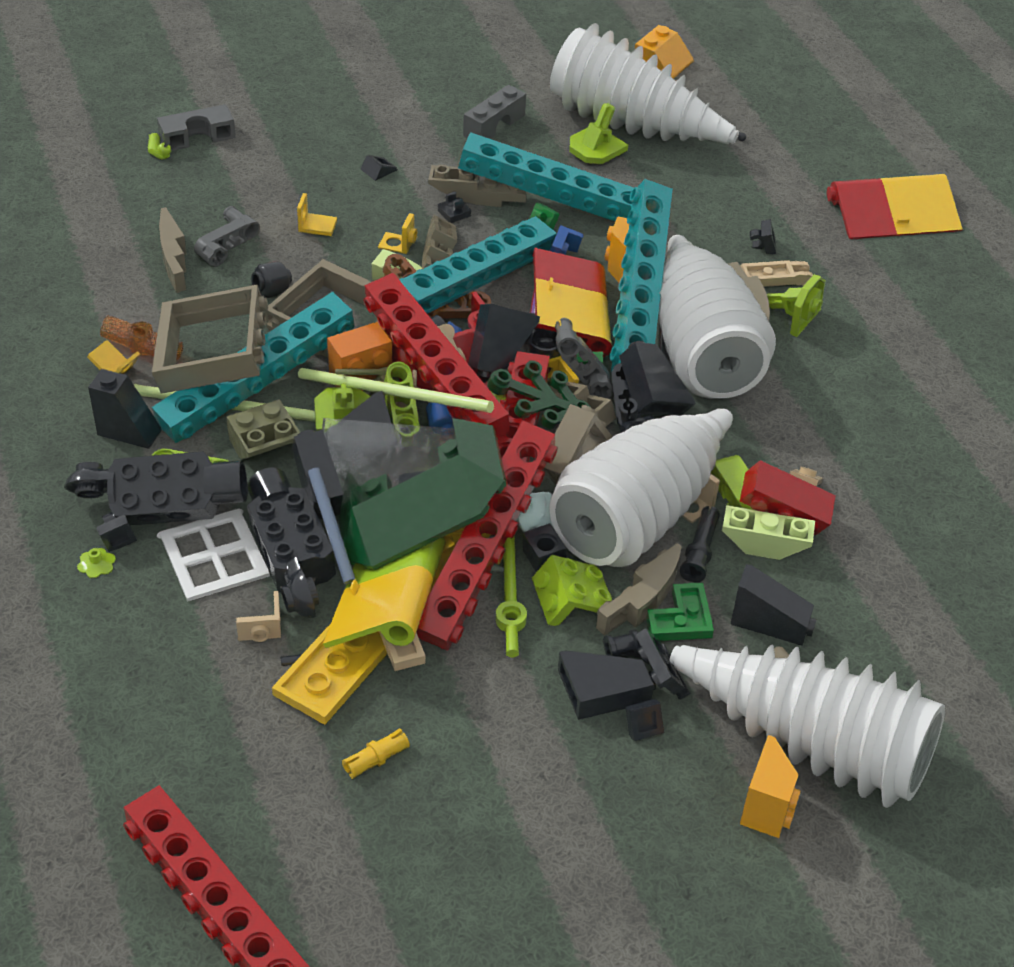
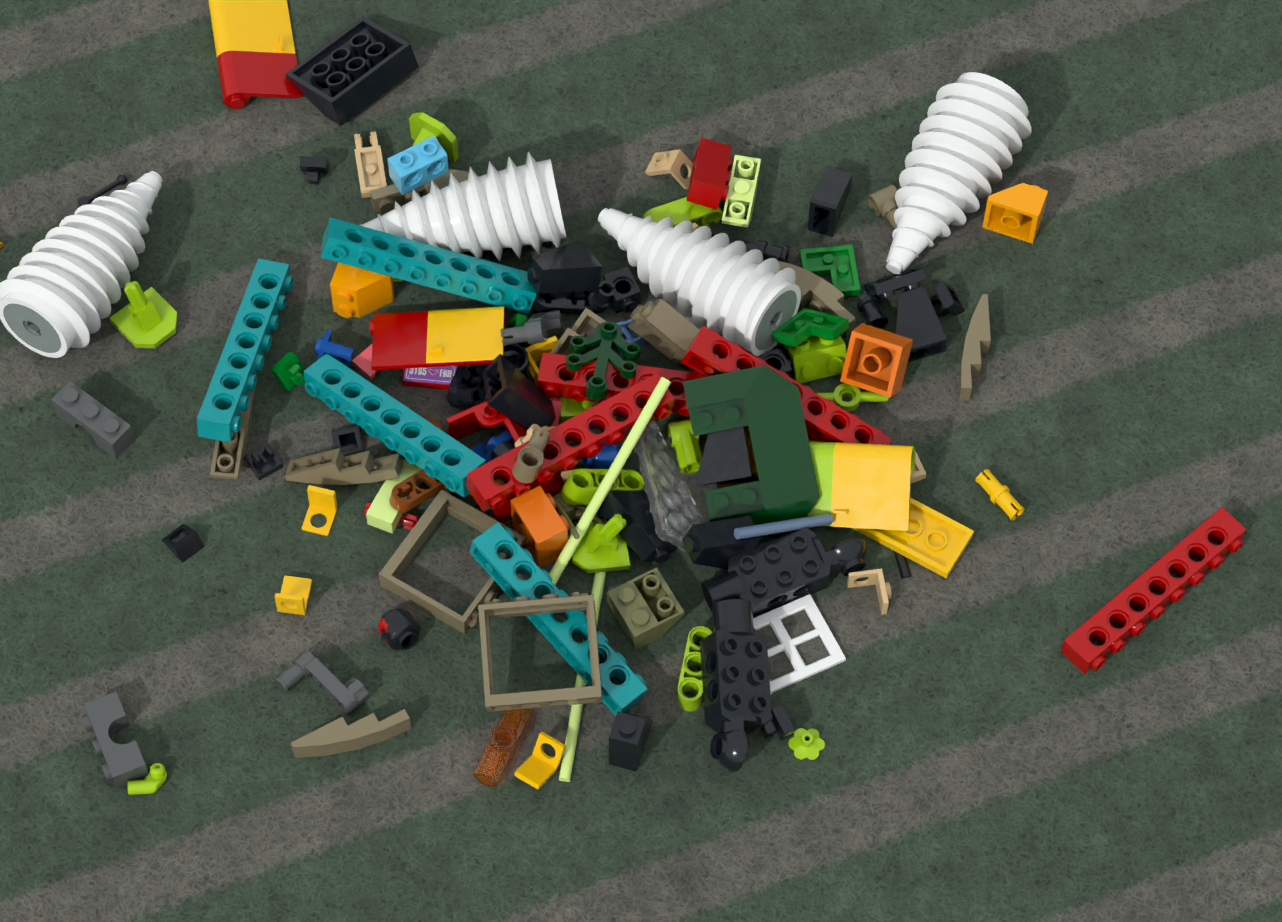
camera: 90 degrees left, 15 degrees up
(403, 306) = (531, 455): none -> dark tan pin
(546, 627) = (876, 360): none -> orange brick
(590, 741) = (976, 342): none -> dark tan slope
(592, 570) = (809, 323): none -> green plate
(764, 280) = (418, 165): none -> medium azure brick
(878, 262) = (353, 70): none -> black slope

